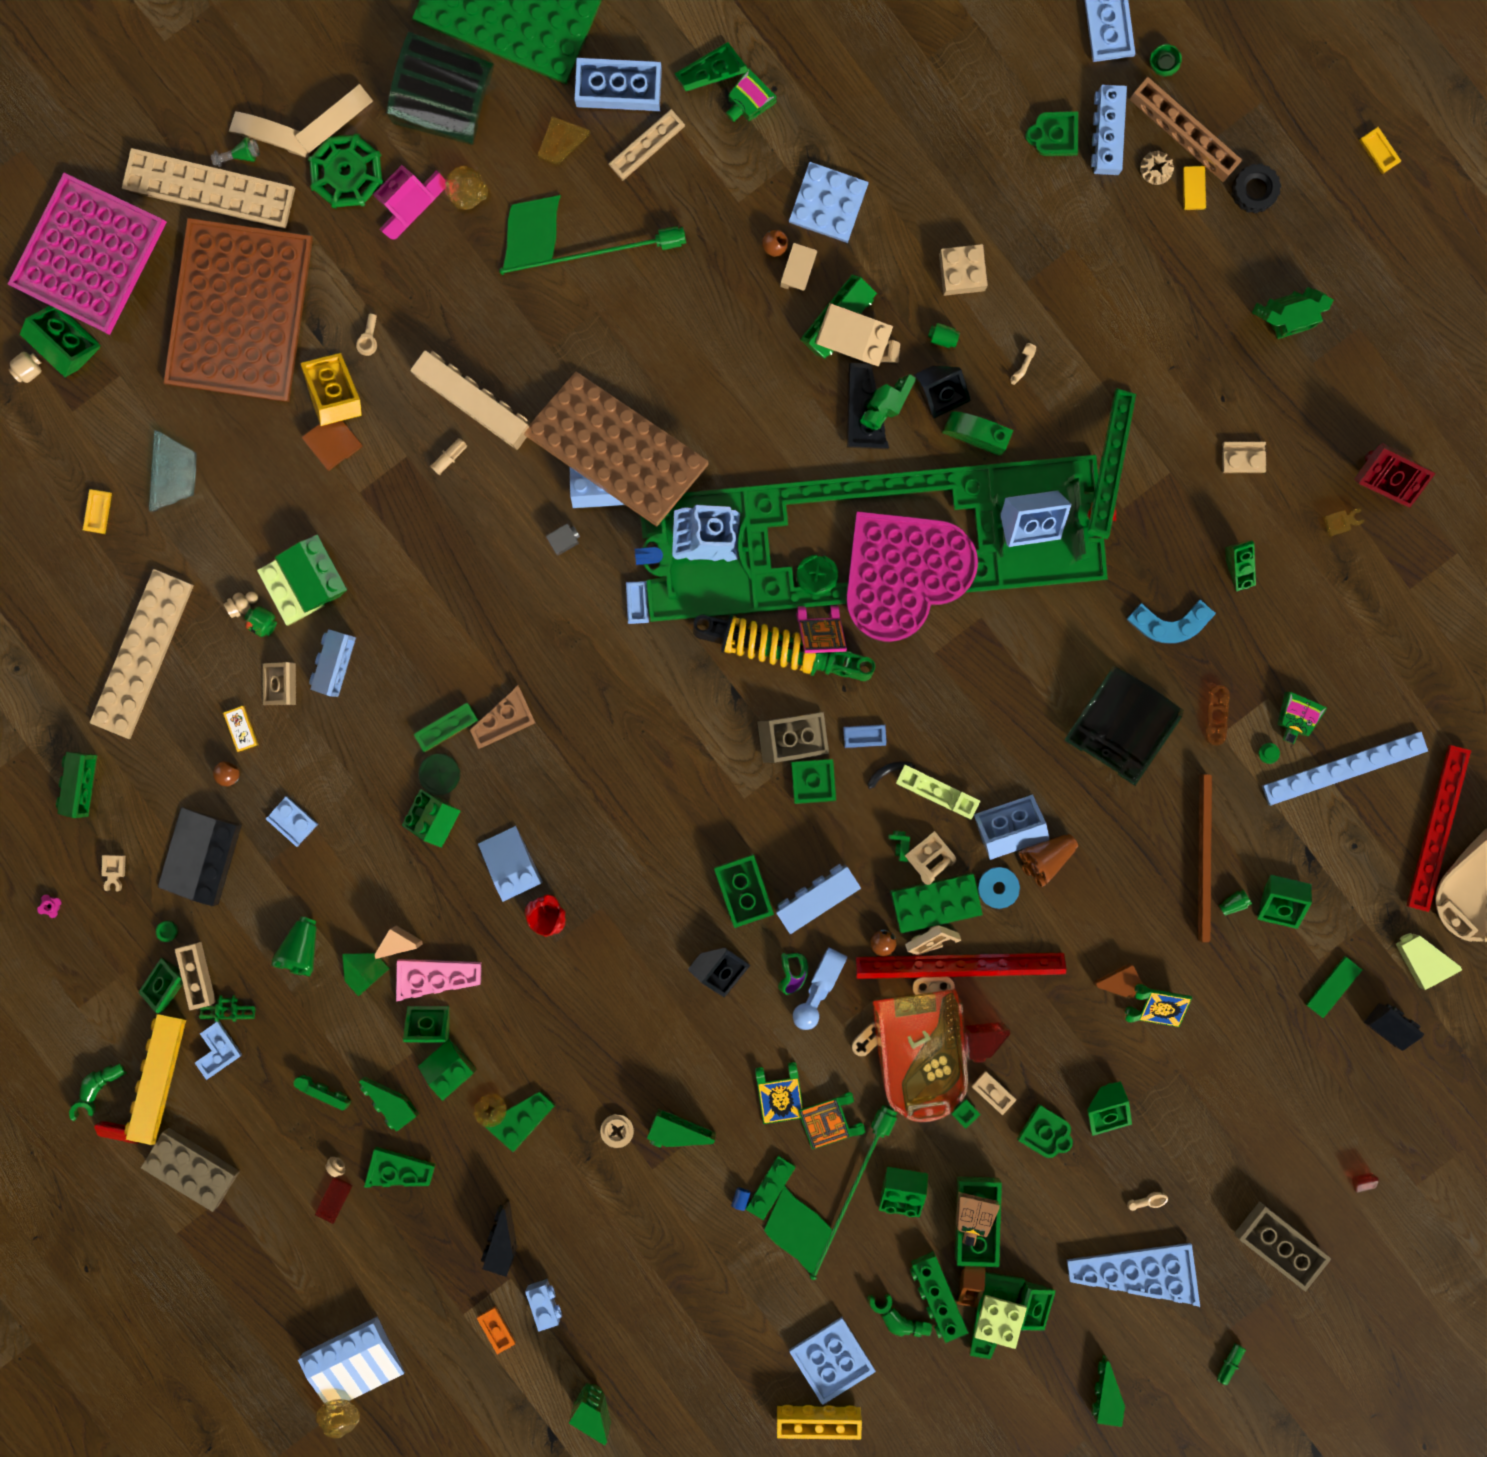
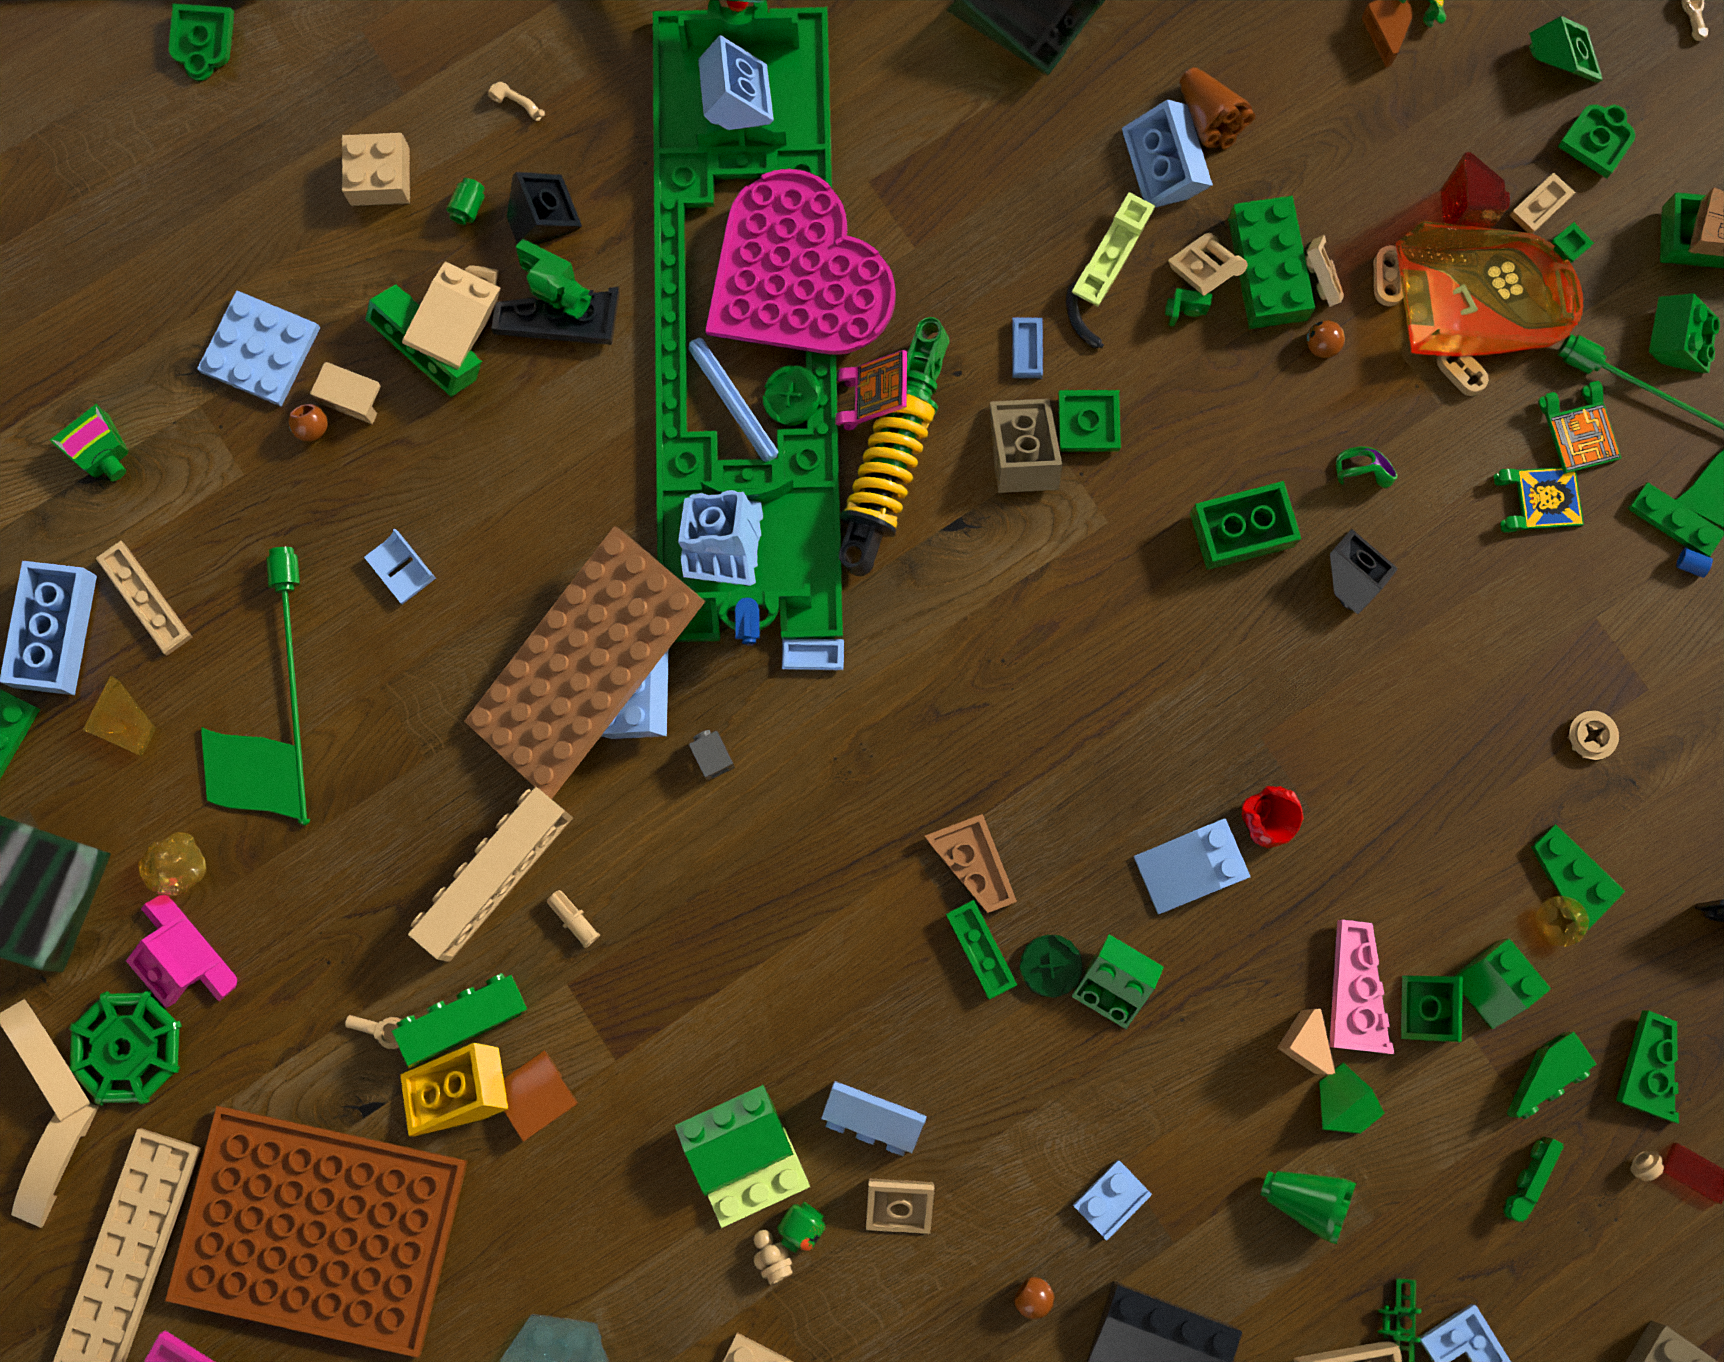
camera: 85 degrees left, 10 degrees down
(240, 728) = (965, 1271): tile -> none
(245, 150) = (72, 1202): piece -> none
(375, 388) = (460, 1020): none -> green brick
(670, 323) = (390, 556): none -> light blue piece
(675, 1131) = (1600, 642): green slope -> none
(711, 68) = (43, 494): green wing -> none
(806, 1014) = (1378, 424): light blue beam -> none
(811, 534) = (733, 400): none -> light blue axle
(817, 899) = (1260, 420): light blue brick -> none
(960, 965) = (1361, 237): red plate -> none
(978, 432) = (607, 157): green brick -> none
(1010, 892) = (1253, 164): dark azure tile -> none

